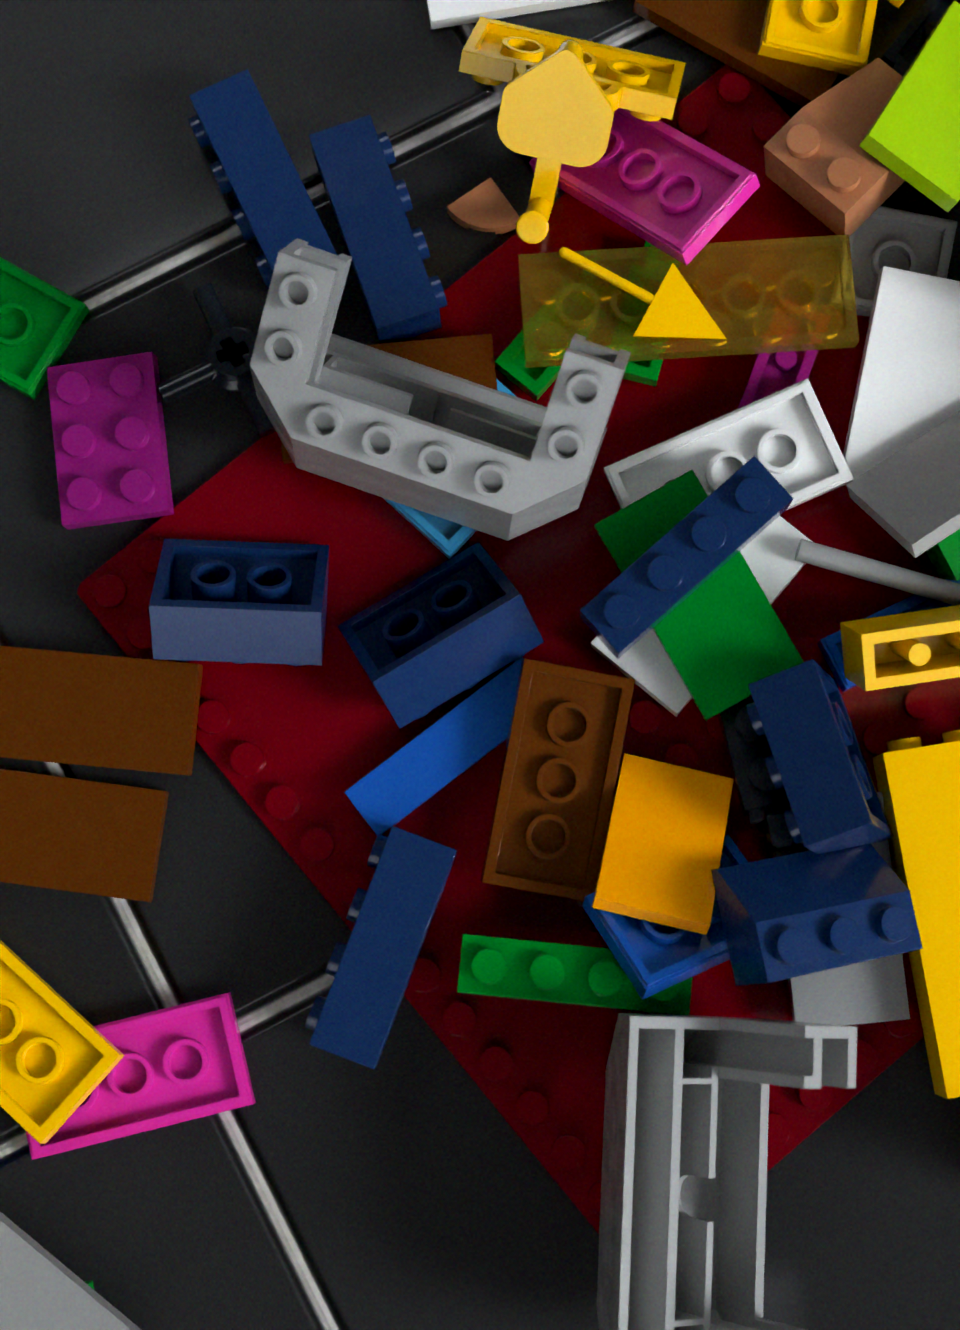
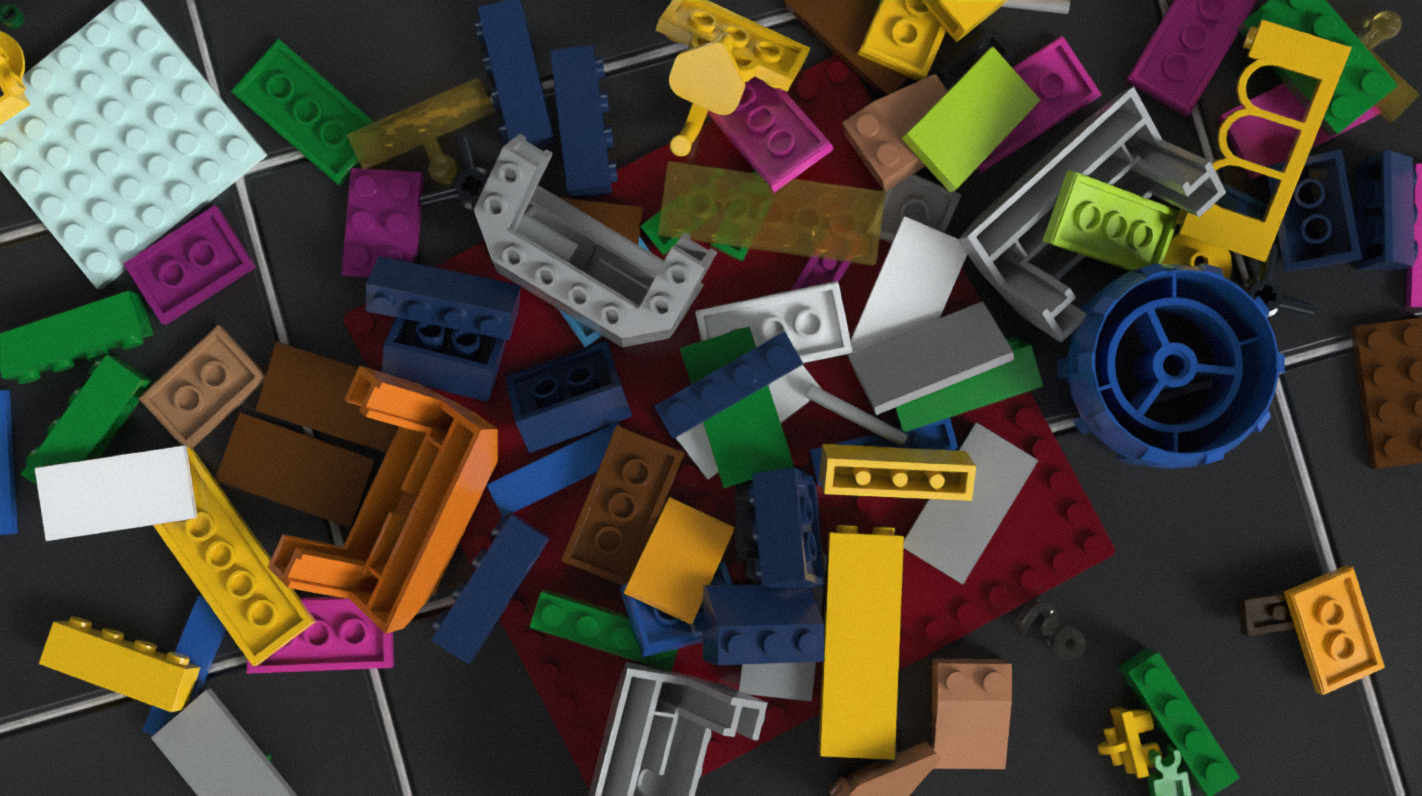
camera: 10 degrees right, 5 degrees up
(140, 285) = (422, 125): none -> clear yellow plate
(222, 524) = (443, 298): none -> dark blue brick
(238, 850) = (411, 511): none -> orange wedge
(484, 210) = (657, 120): nougat tile -> none
(672, 310) = (759, 219): yellow piece -> none

